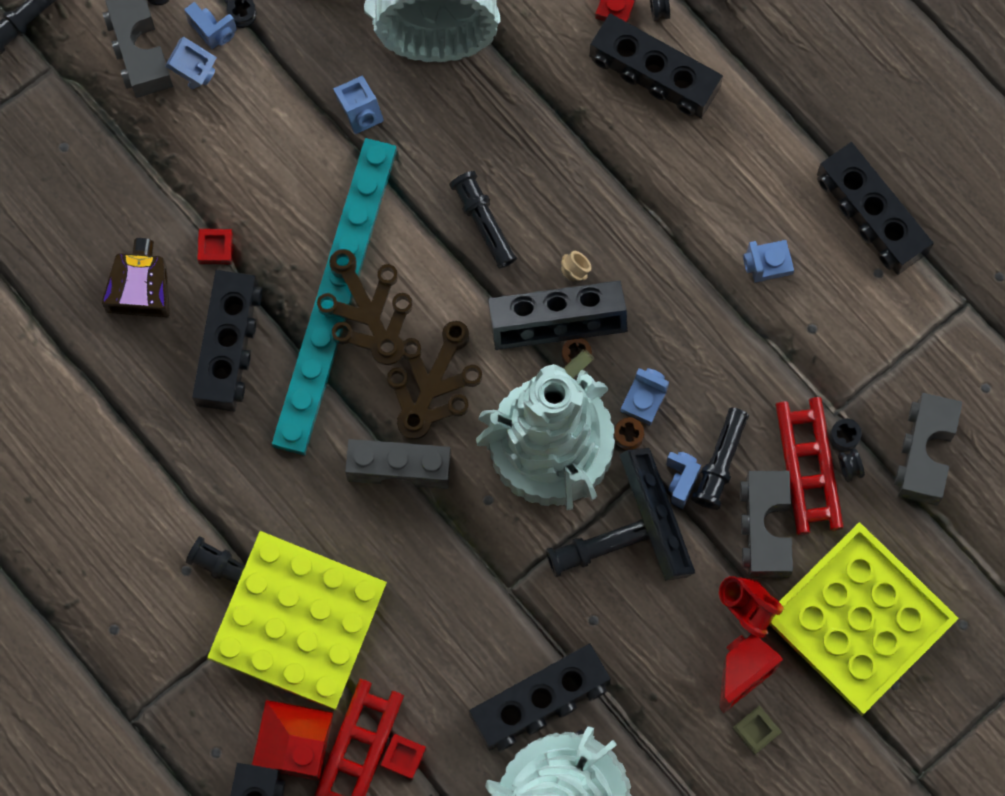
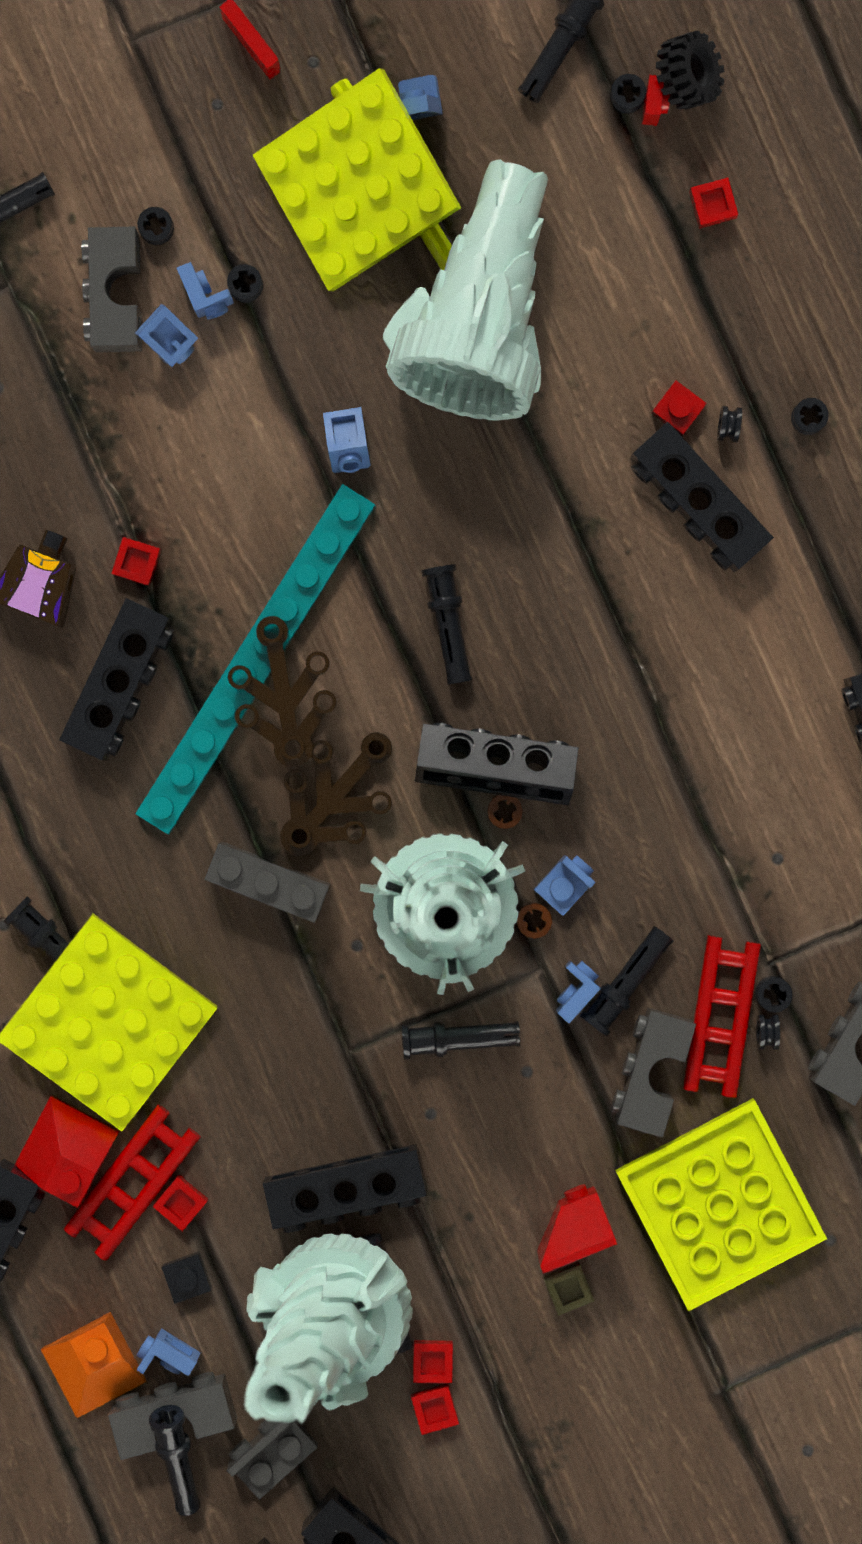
camera: 15 degrees right, 15 degrees up
(575, 266) = (535, 710): tan plate -> none
(578, 363) = (498, 833): olive tile -> none
(657, 514) = (536, 1022): black tile -> none
(749, 603) = (605, 1158): red piece -> none
(768, 260) = (754, 767): medium blue bracket -> none

